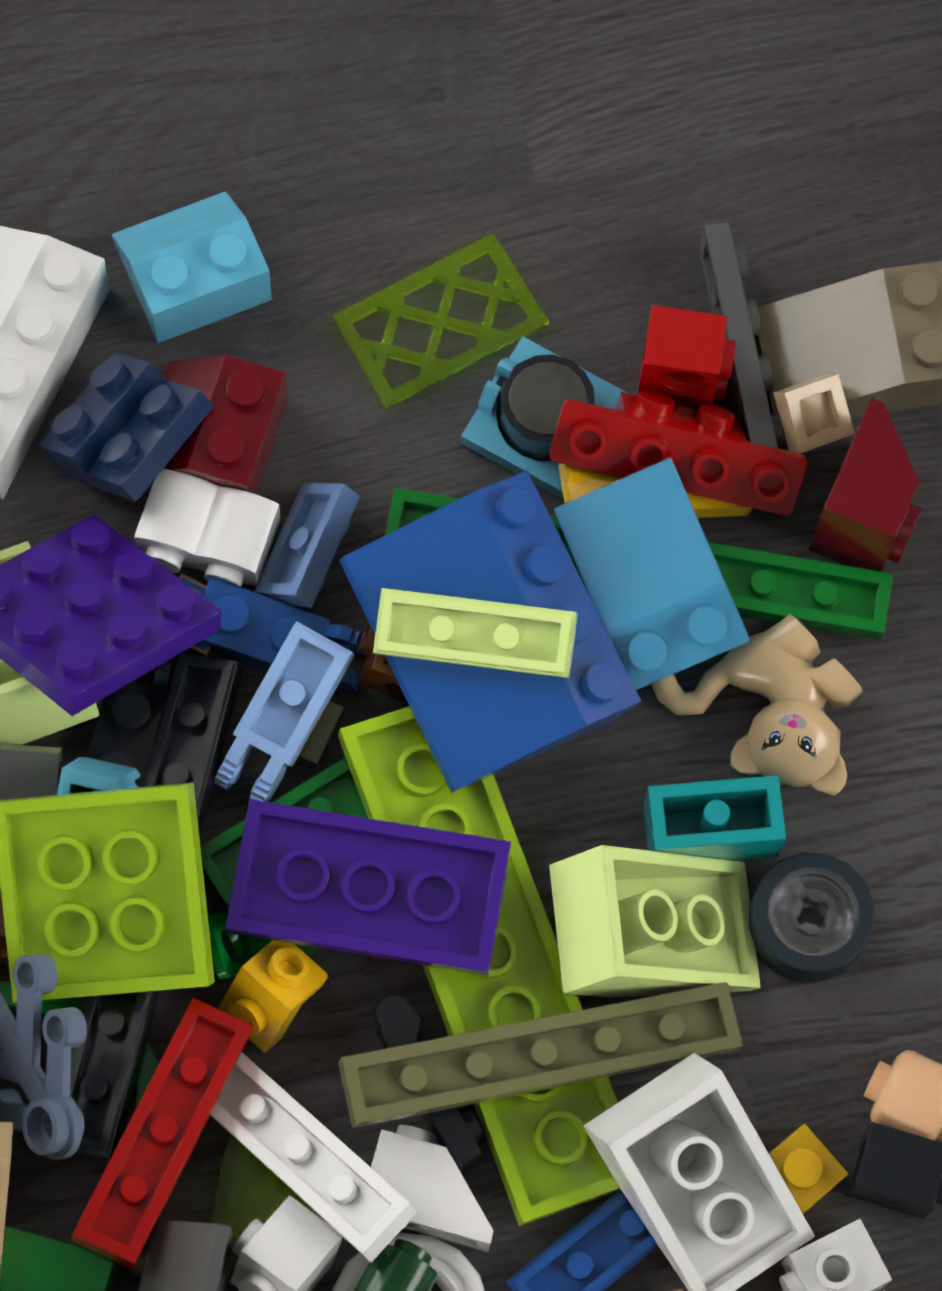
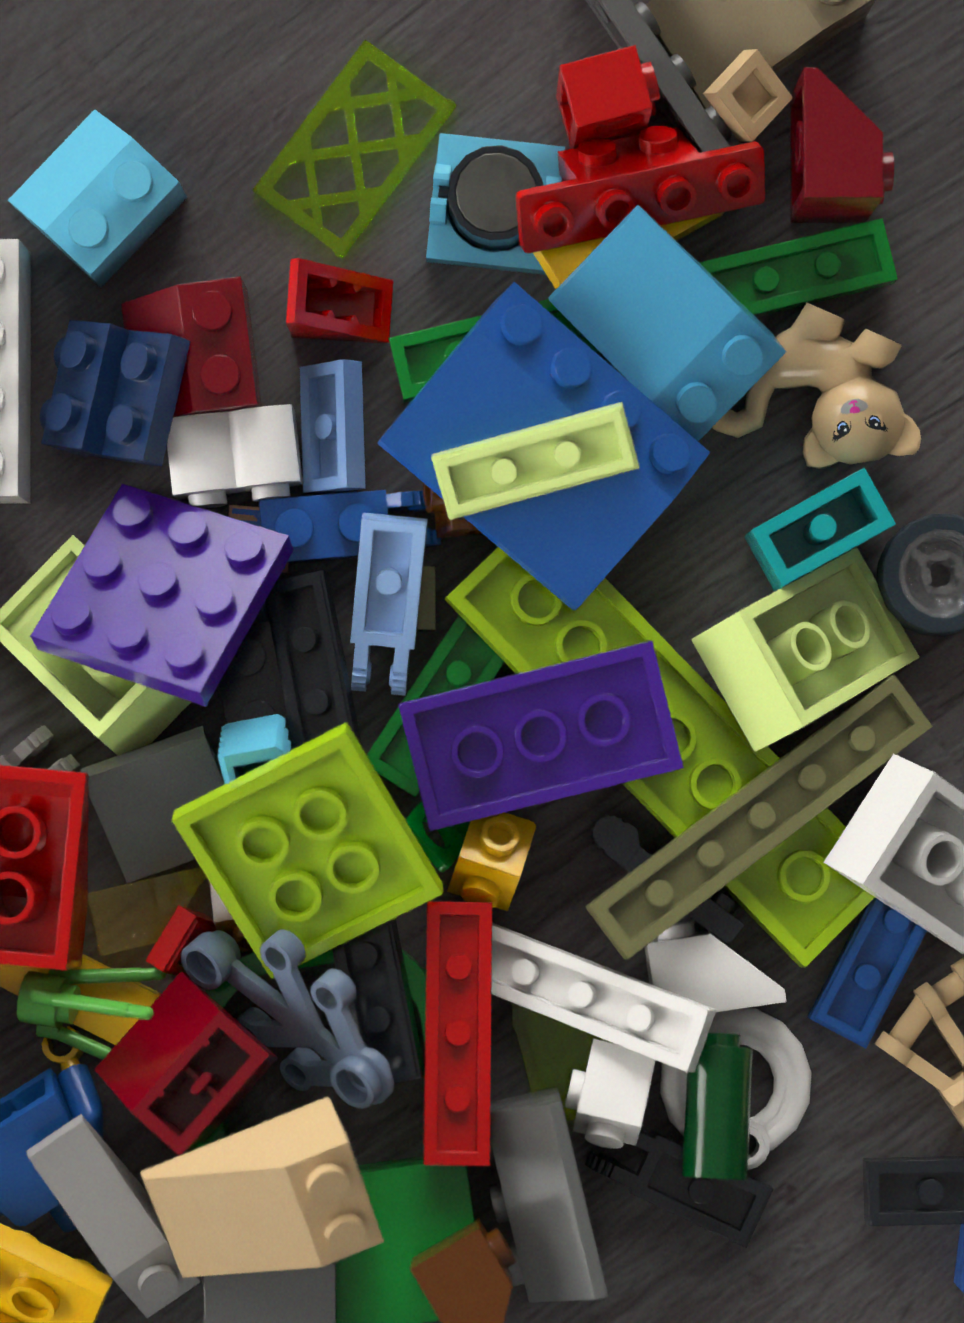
camera: 20 degrees left, 15 degrees up
(360, 438) = (337, 303): none -> red slope

